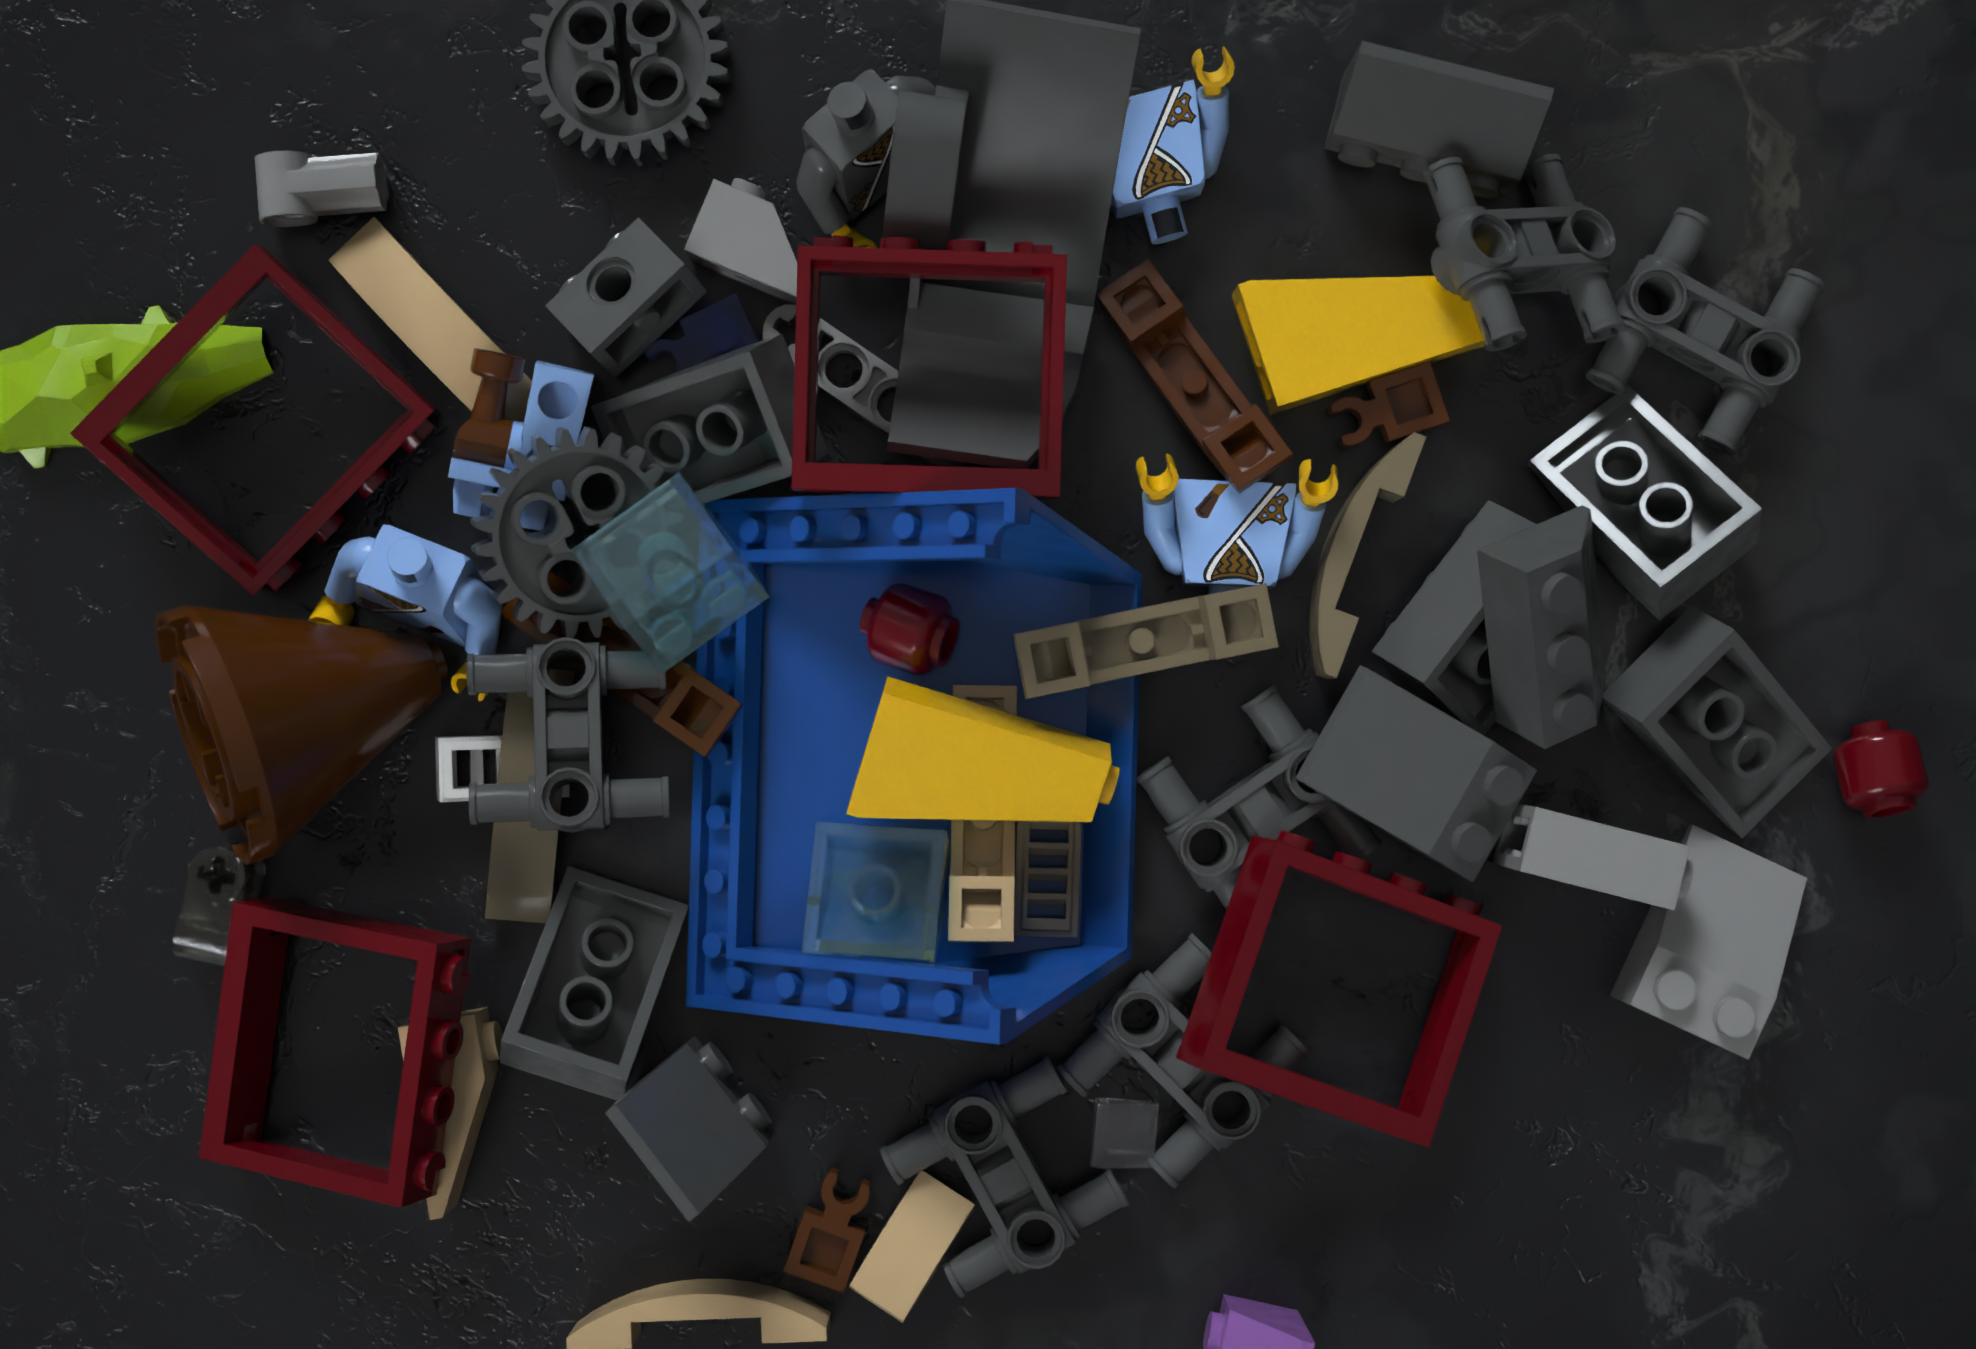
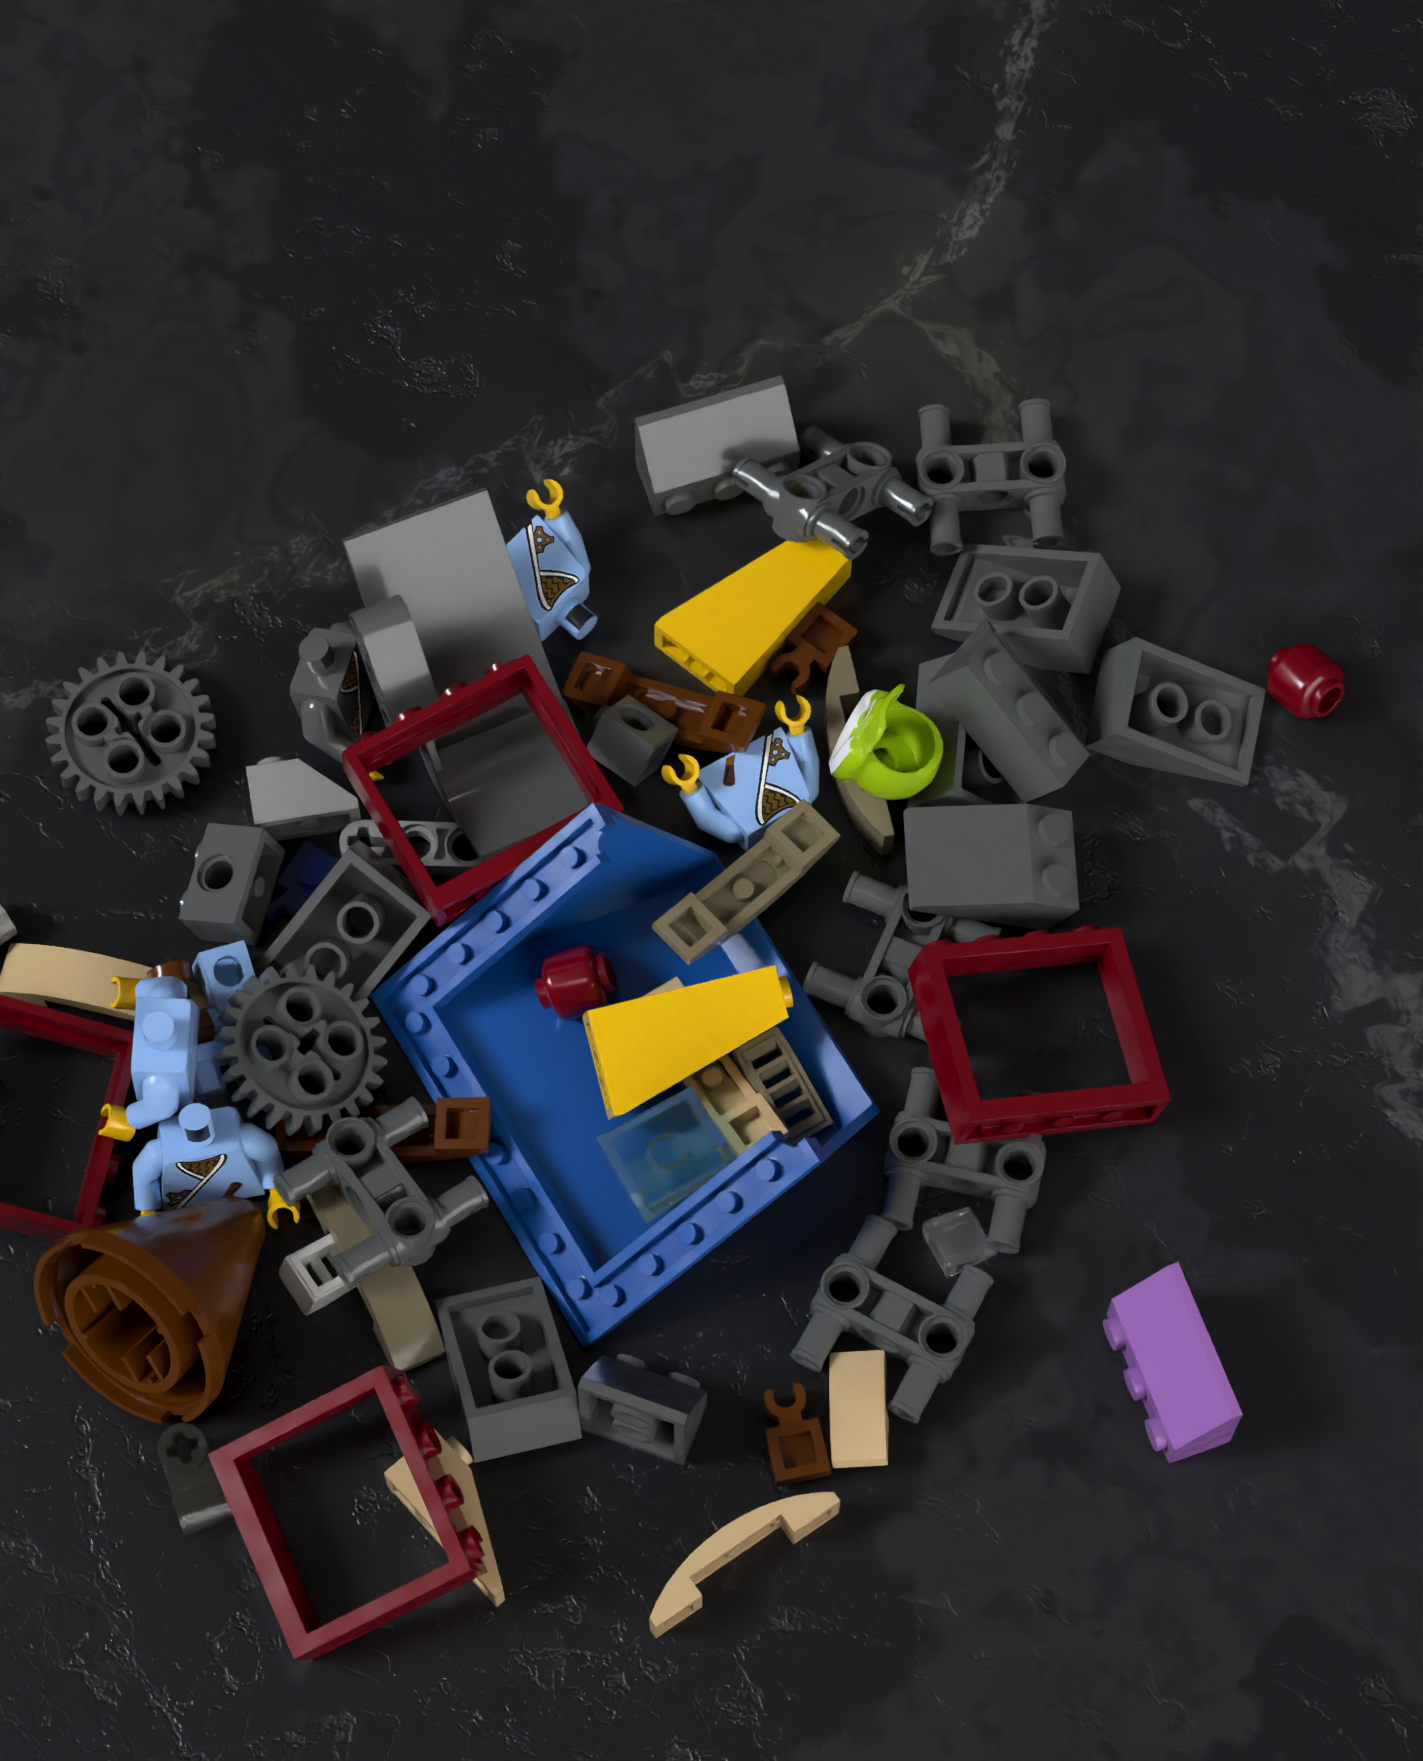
camera: 30 degrees left, 20 degrees down
(421, 451) = (161, 1053): none -> light blue torso
(670, 573) = (386, 1028): clear light blue slope -> none
(1133, 394) = (630, 739): none -> dark grey brick
(1386, 589) = (887, 747): none -> lime piece
(1595, 856) = (1147, 844): light grey brick -> none
(1721, 951) = (1275, 864): light grey slope -> none

